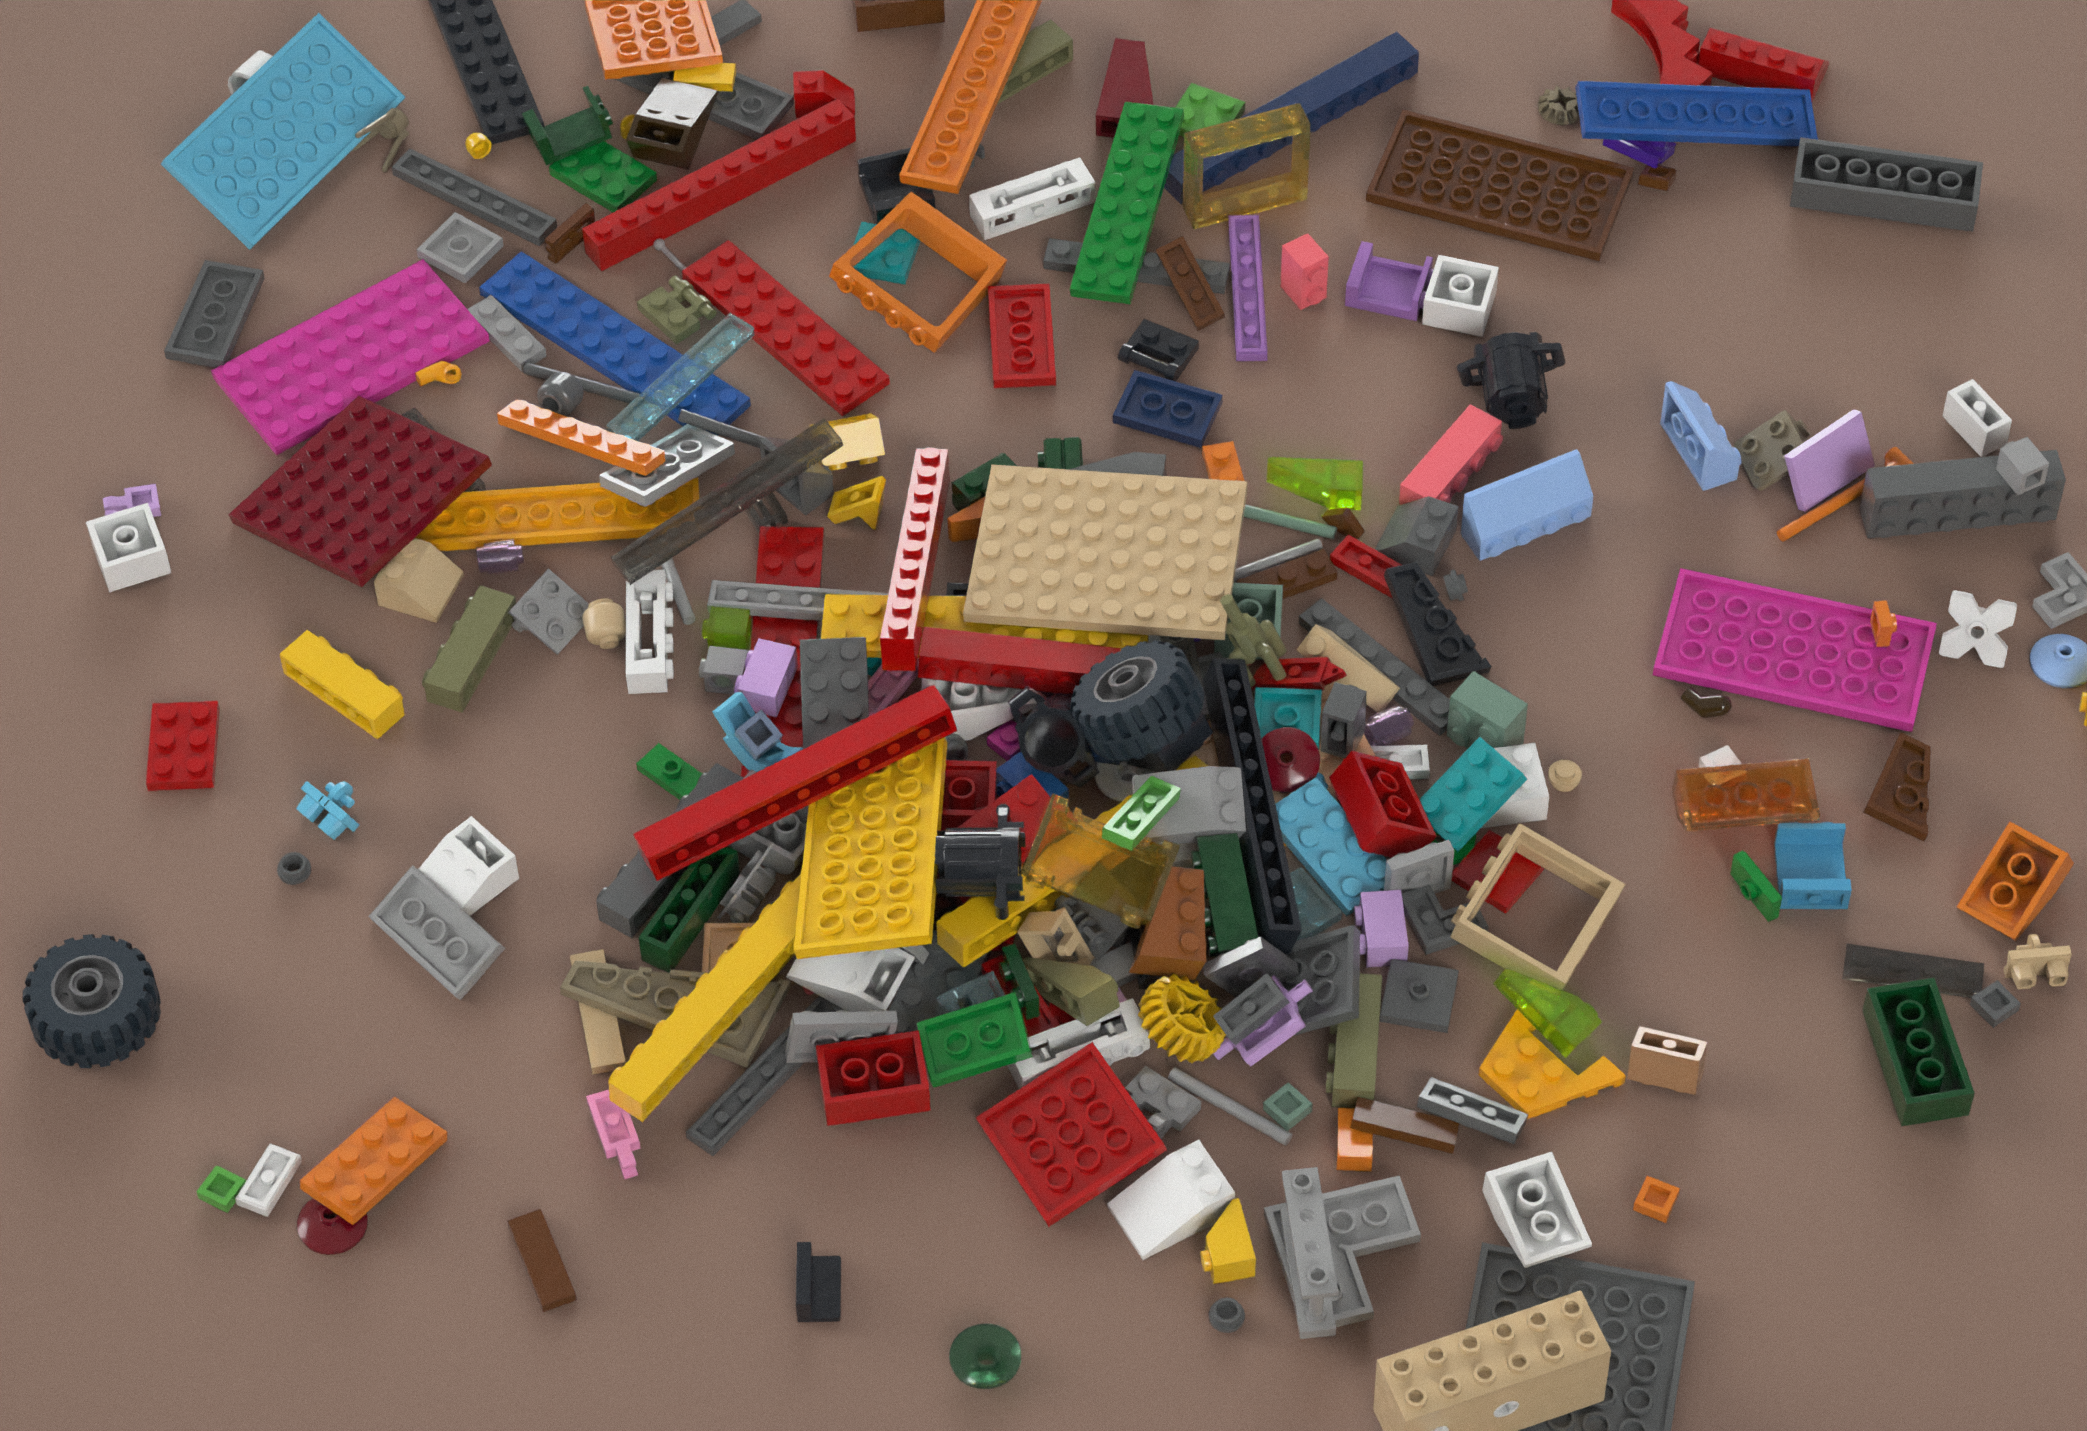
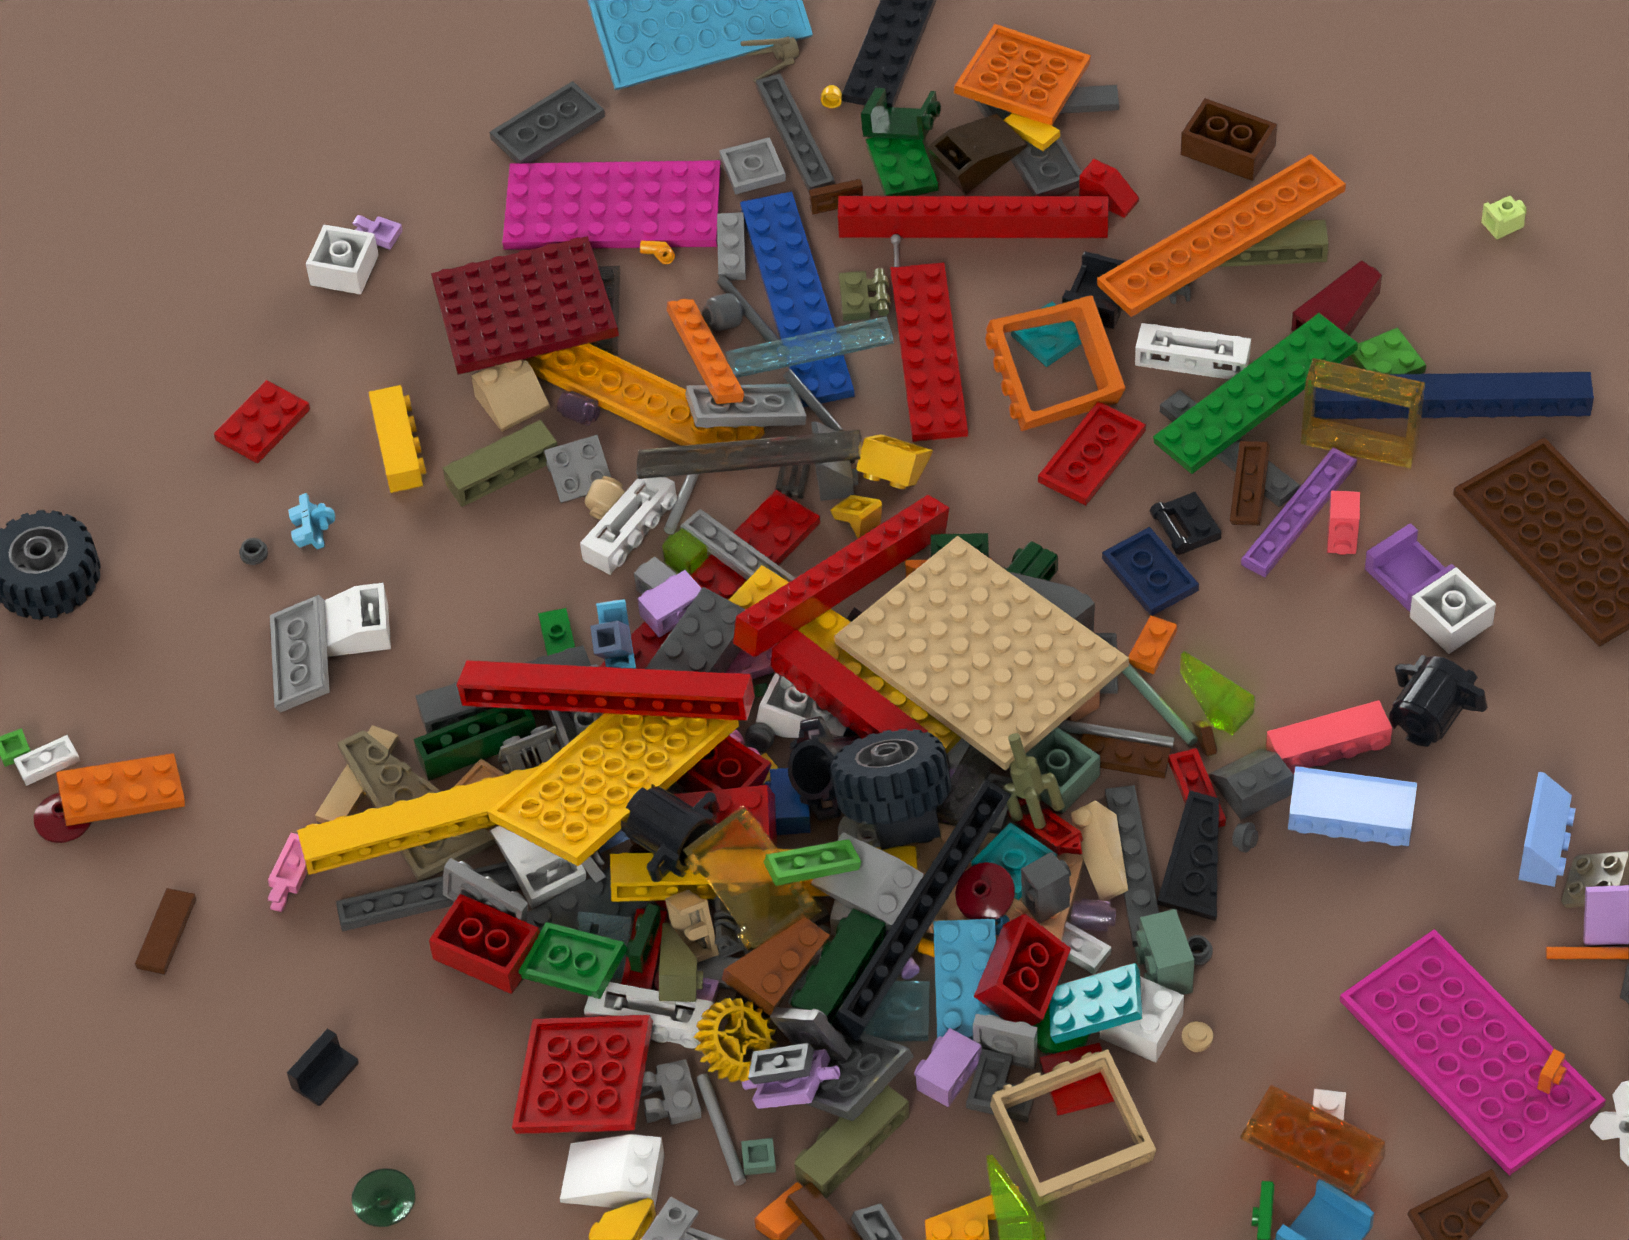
camera: 40 degrees right, 0 degrees up
(1419, 995) = (933, 1136): dark grey plate -> none
(1706, 706) = (1361, 1052): dark brown arm -> none

